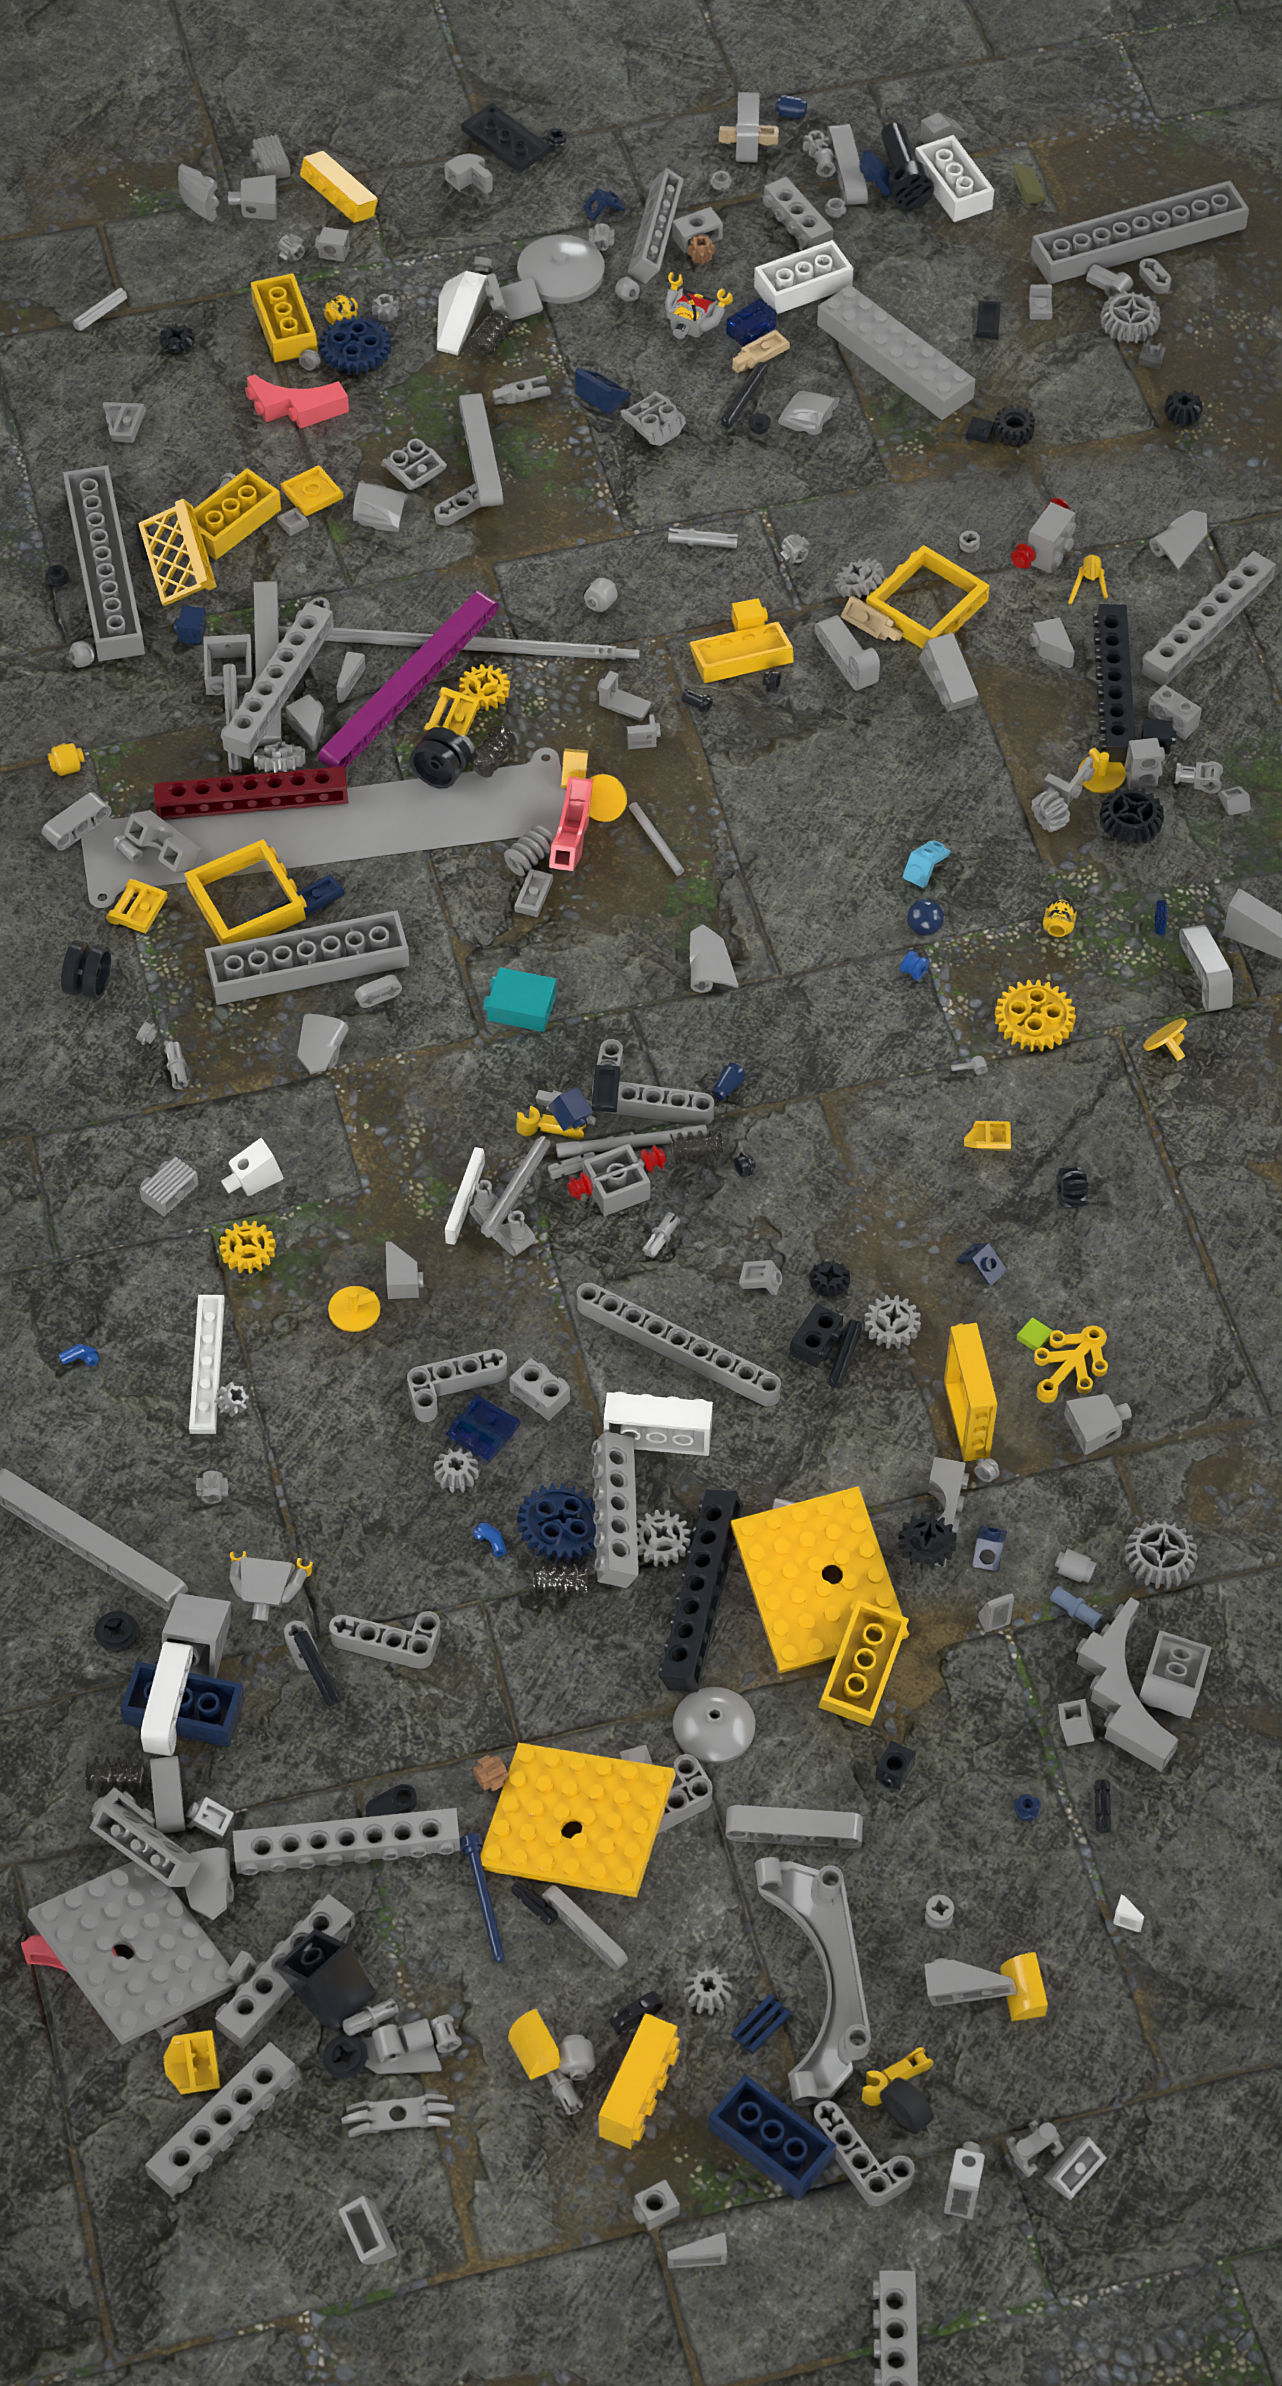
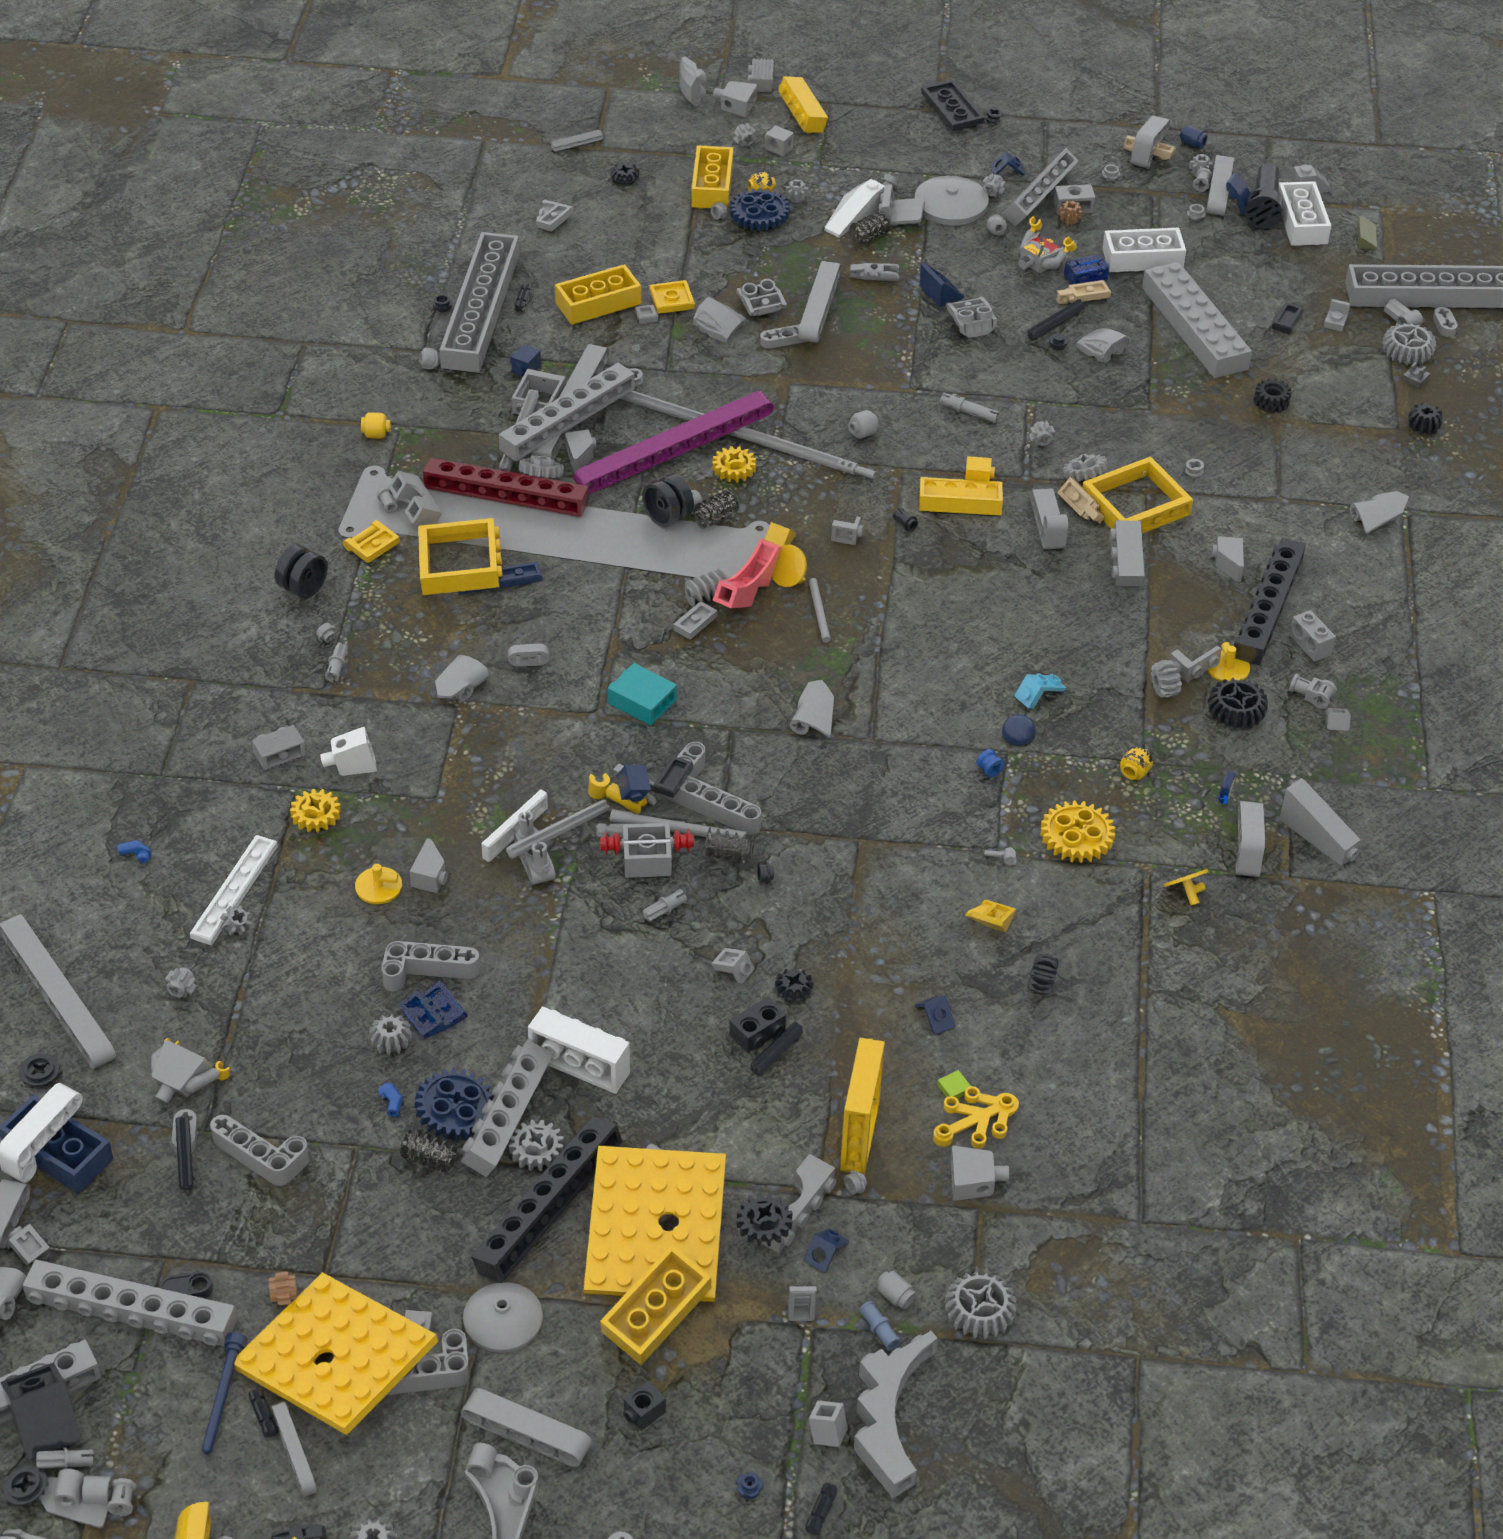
camera: 20 degrees right, 10 degrees down
(76, 821) = (358, 469): light grey beam -> none
(192, 541) = (552, 305): yellow fence -> none
(202, 1625) = (105, 1090): light grey slope -> none
(301, 405) = (695, 238): coral arch -> none
(307, 957) = (482, 613): light grey brick -> none
(350, 673) = (630, 427): light grey slope -> none
(460, 714) = (703, 476): yellow plate -> none
(467, 170) = (910, 118): light grey brick -> none
(536, 1392) = (496, 992): light grey brick -> none
(621, 701) = (835, 499): light grey bracket -> none
(684, 1354) = (634, 995): light grey beam -> none
(728, 1080) = (785, 804): dark blue cone -> none
(772, 679) = (976, 521): black plate -> none
(797, 213) = (1160, 205): light grey brick -> none
(904, 1327) = (830, 1034): light grey gear -> none
(980, 429) = (1242, 392): black plate -> none
(1048, 538) = (1259, 479): light grey brick -> none
(1091, 569) = (1289, 514): yellow plant -> none
(1144, 763) = (1265, 664): light grey brick -> none
(1159, 729) = (1289, 650): black brick -> none
(1174, 1674) = (943, 1414): light grey slope -> none
(1208, 618) = (1376, 575): light grey brick -> none

